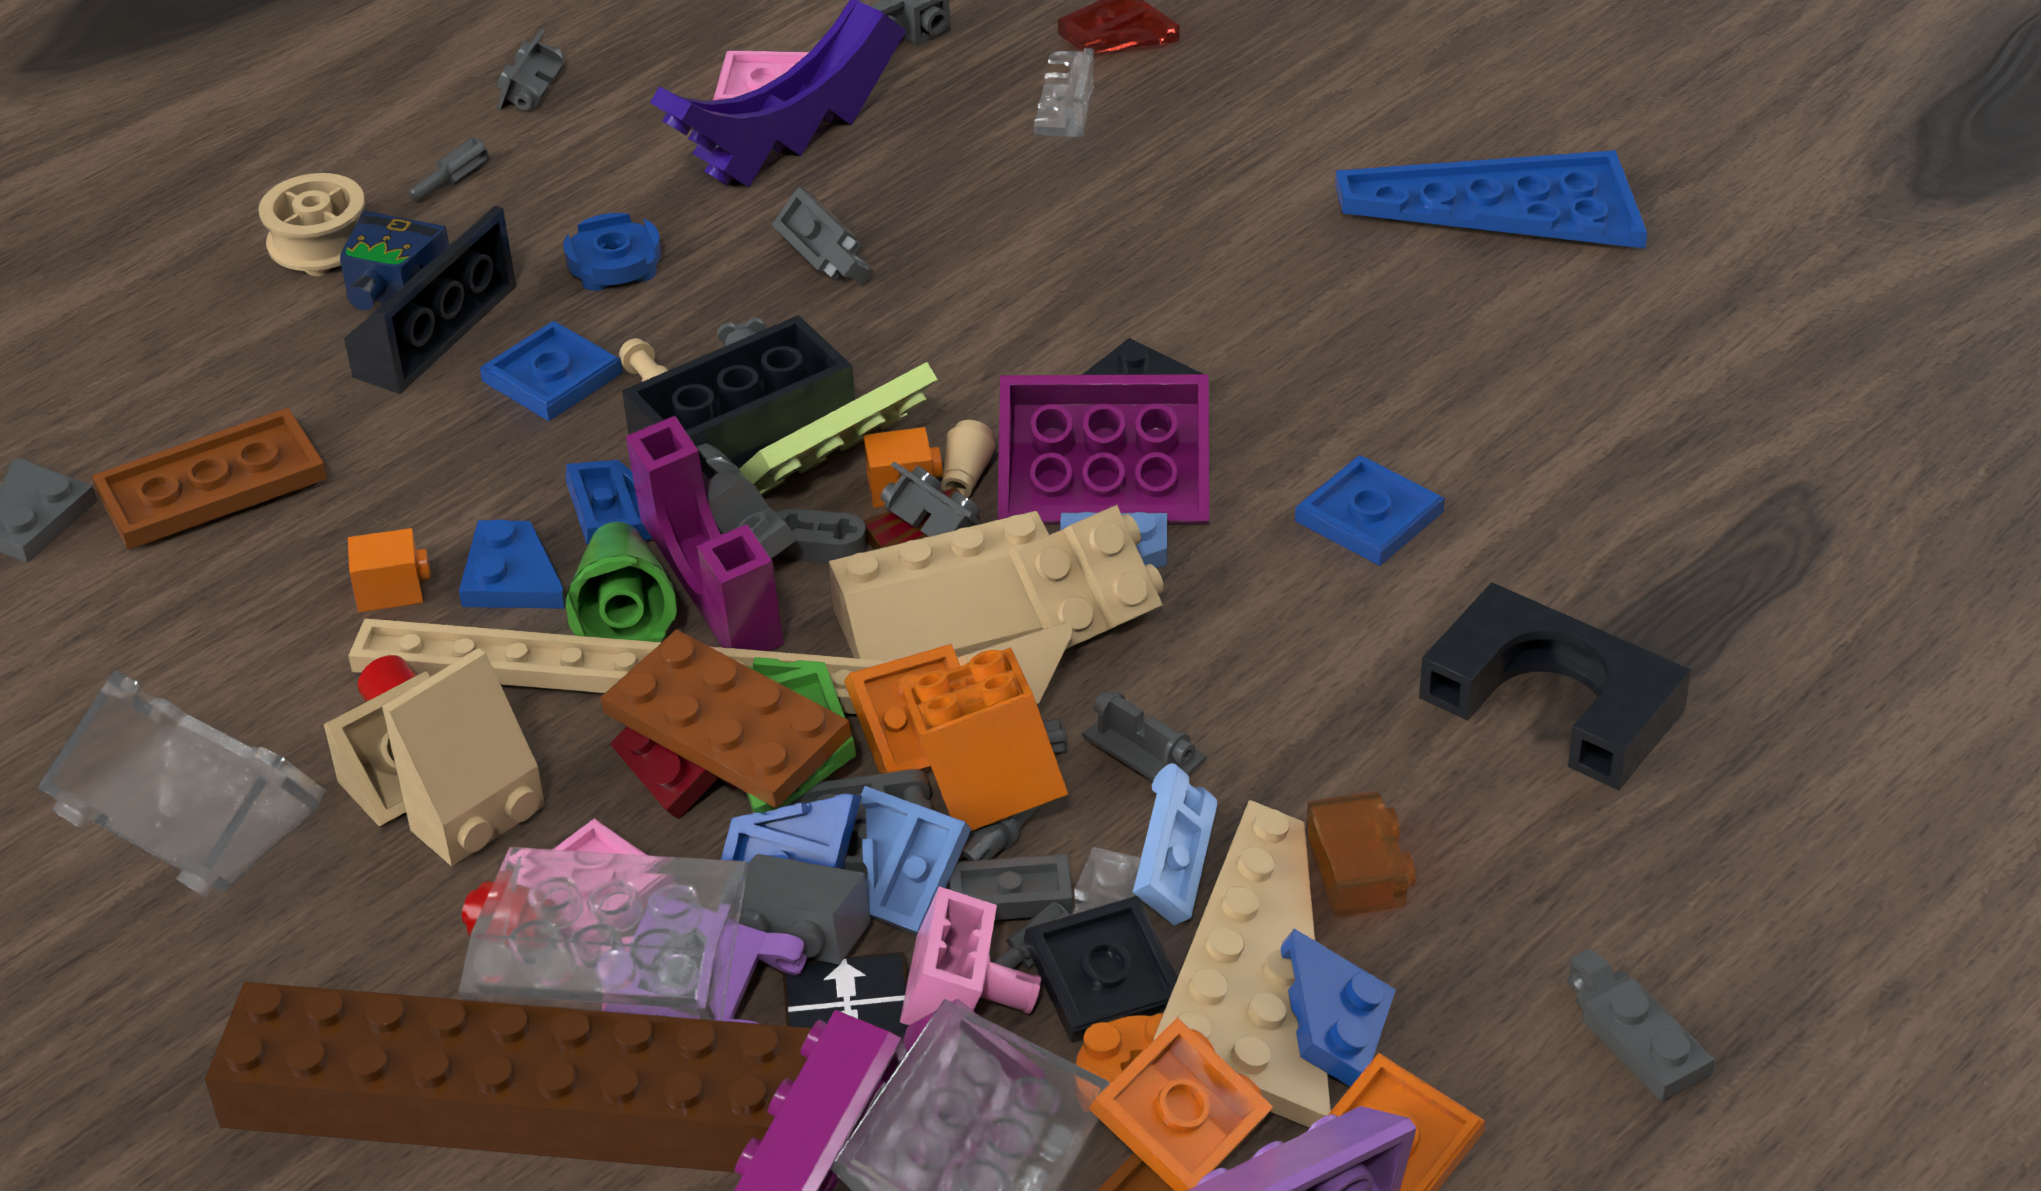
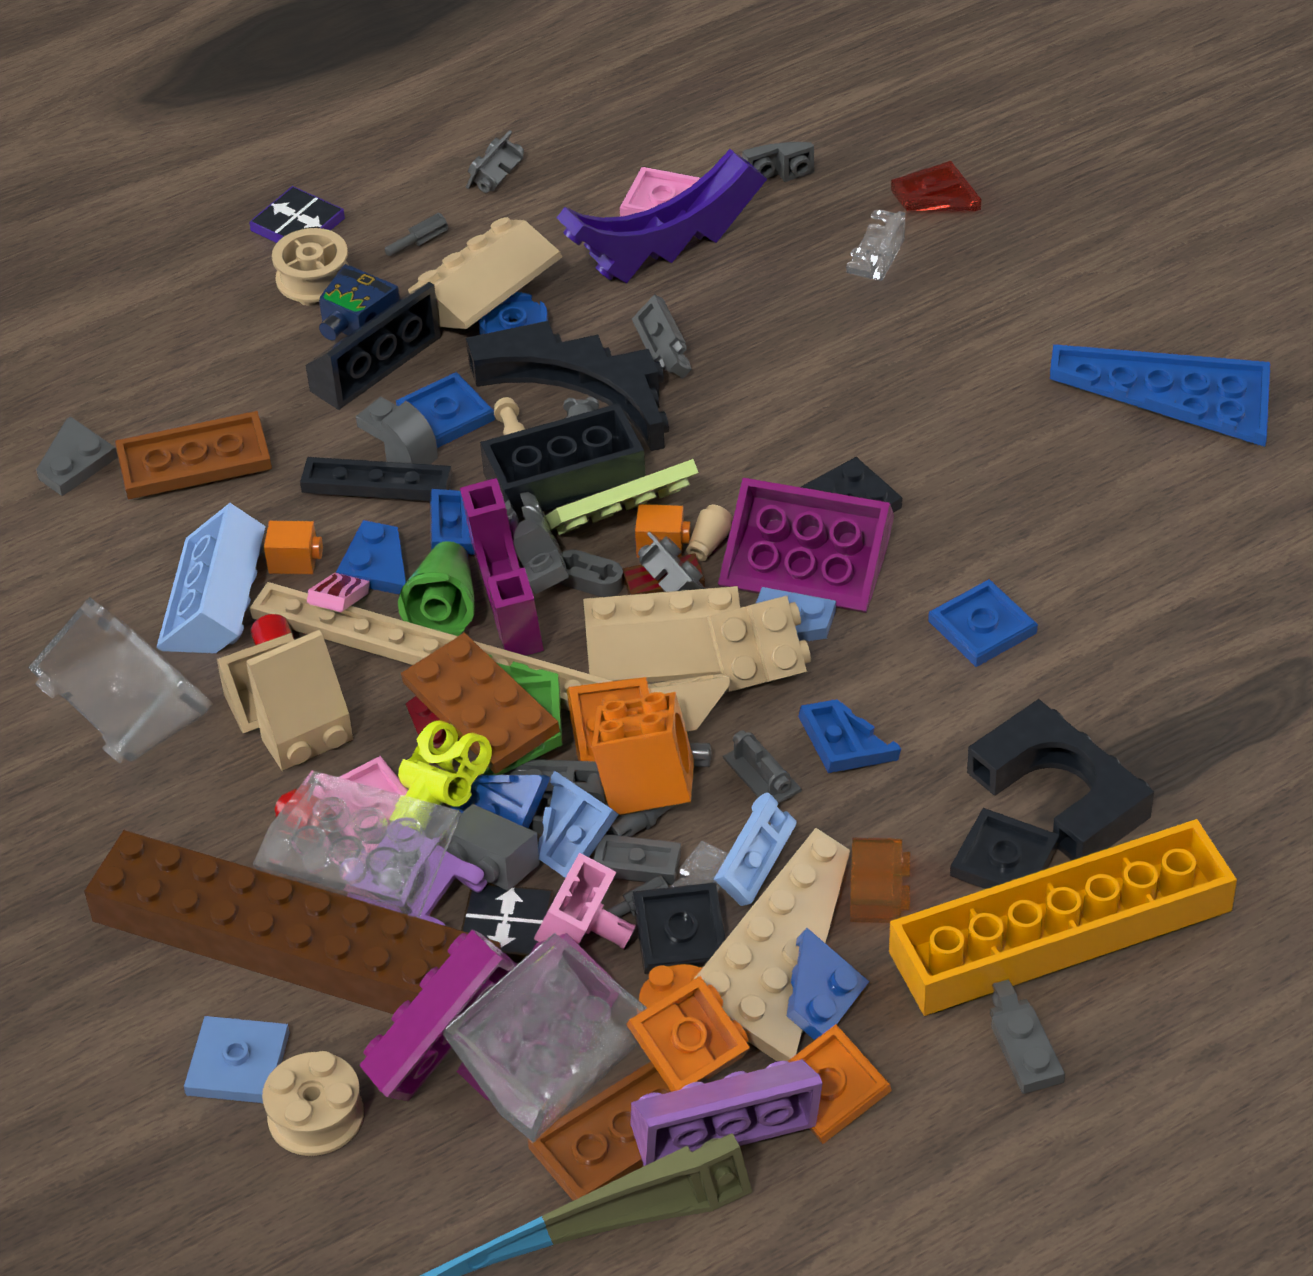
camera: 15 degrees right, 5 degrees up
(267, 165) = (295, 212): none -> black tile
(283, 636) = (213, 584): none -> light blue slope
(471, 614) = (337, 592): none -> bright pink tile
(477, 466) = (373, 478): none -> black plate
(510, 399) = (402, 429): none -> dark grey brick
(566, 191) = (488, 271): none -> tan slope
(704, 830) = (446, 785): none -> neon yellow connector
(721, 286) = (581, 364): none -> black arch
(1241, 681) = (843, 738): none -> blue wing
(1517, 790) = (1002, 850): none -> black plate
(1627, 853) = (1061, 916): none -> light orange brick

